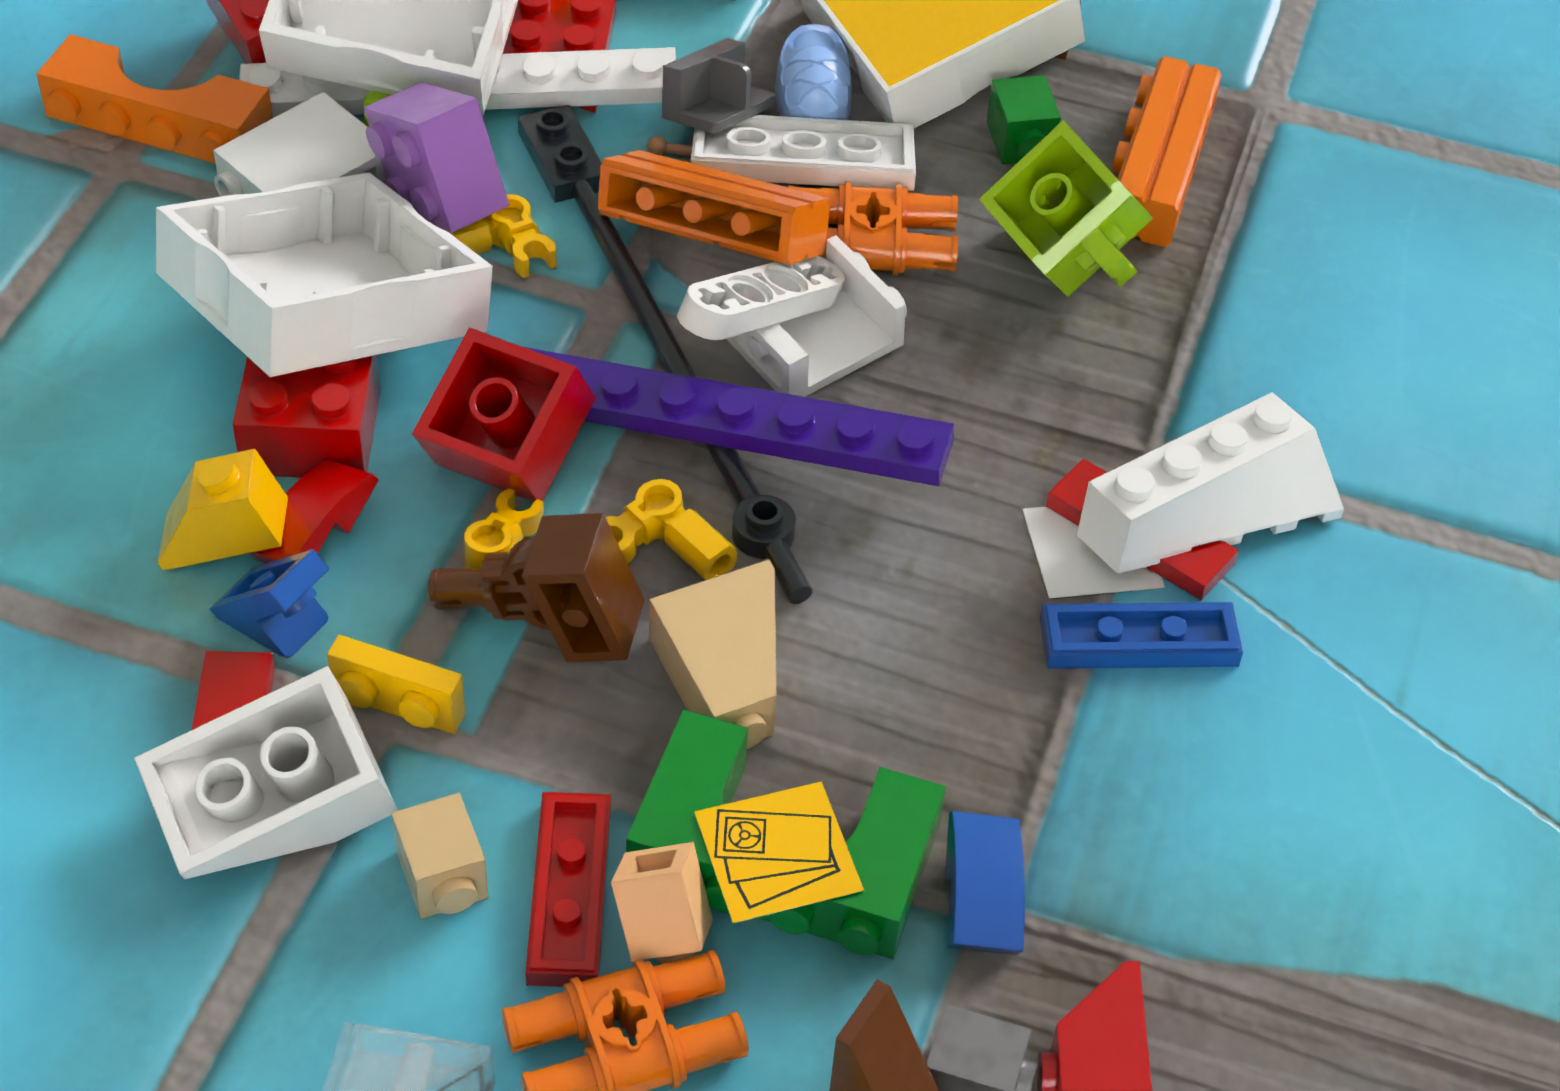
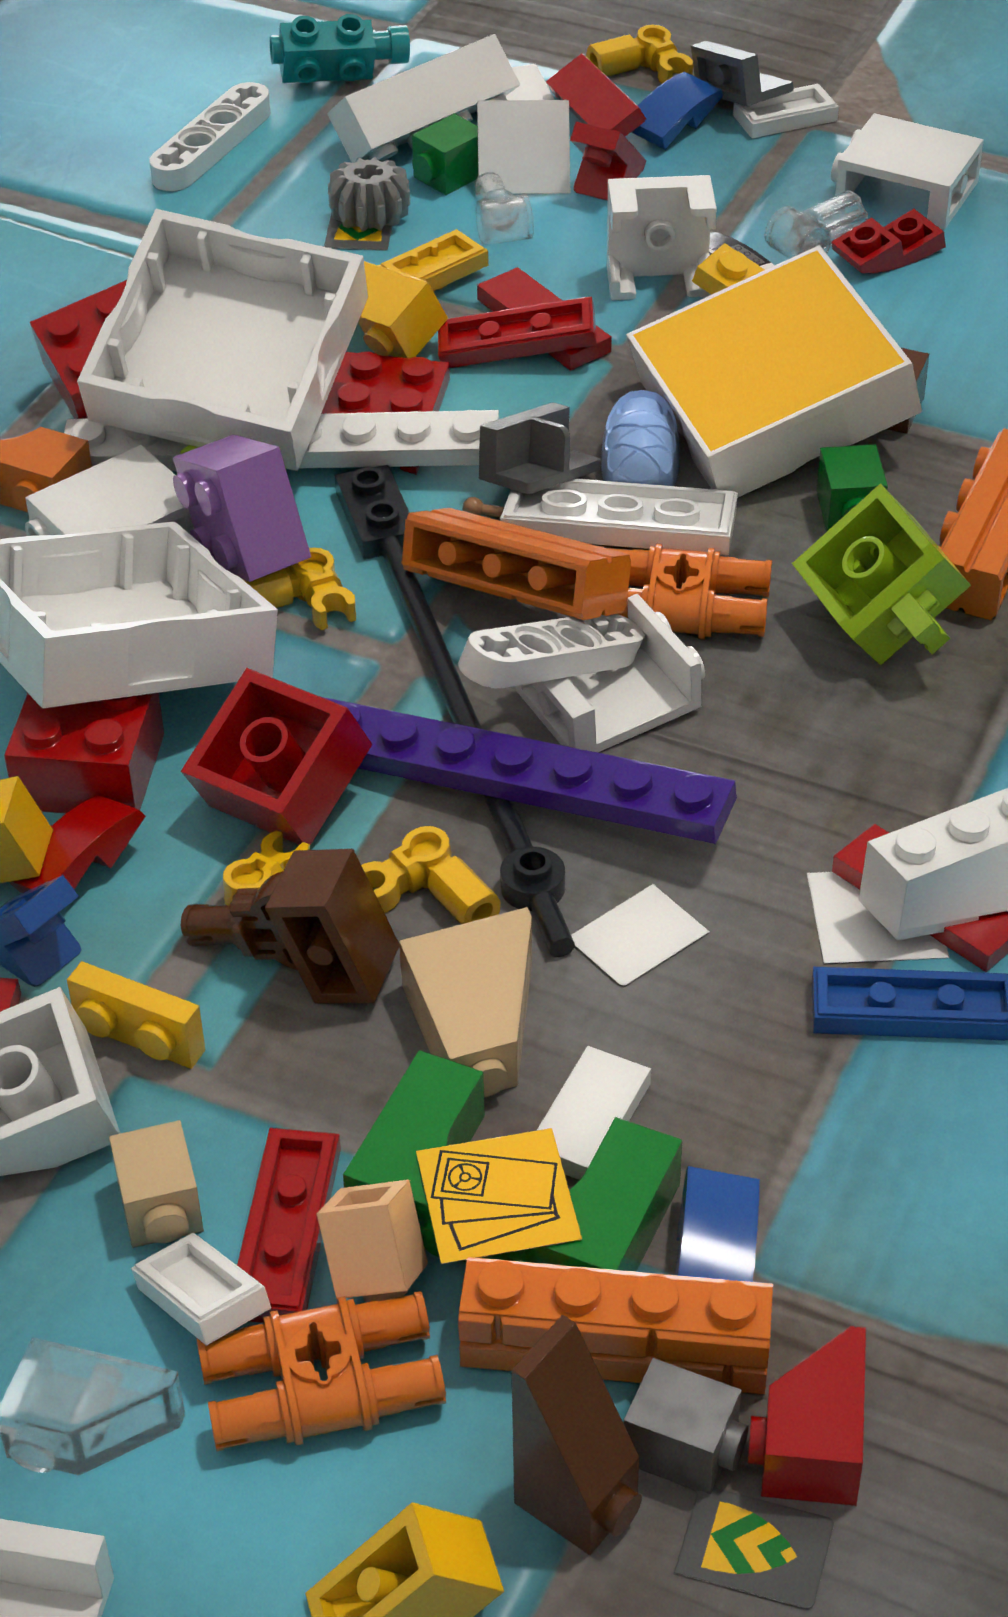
camera: 10 degrees right, 5 degrees down
(499, 959) = (200, 1288): none -> white tile
(829, 964) = (623, 1317): none -> orange brick
(850, 754) = (591, 1098): none -> white tile
(870, 578) = (638, 935): none -> white sticker

